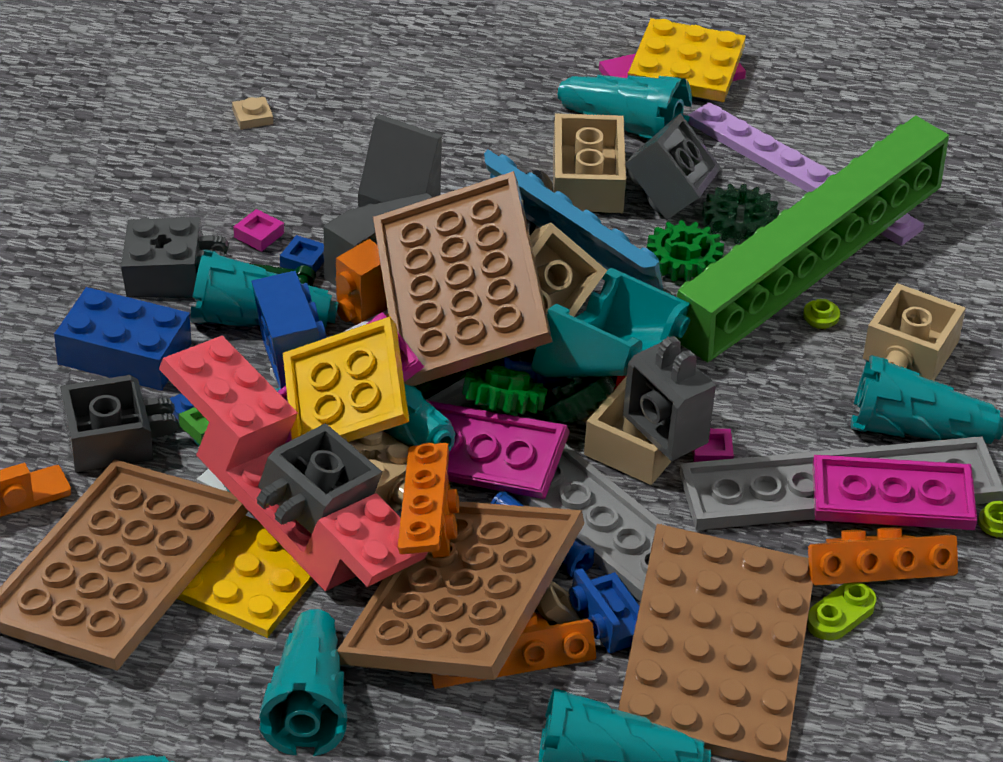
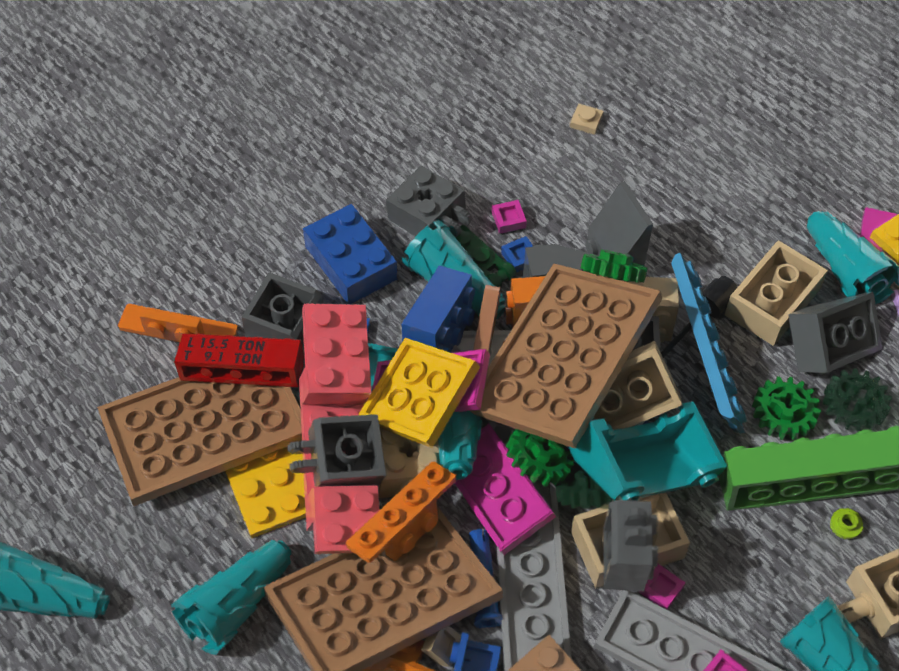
camera: 40 degrees right, 15 degrees up
(106, 479) = (239, 360): none -> red brick
(333, 304) = (487, 318): none -> nougat beam
(435, 183) = (614, 265): none -> green gear

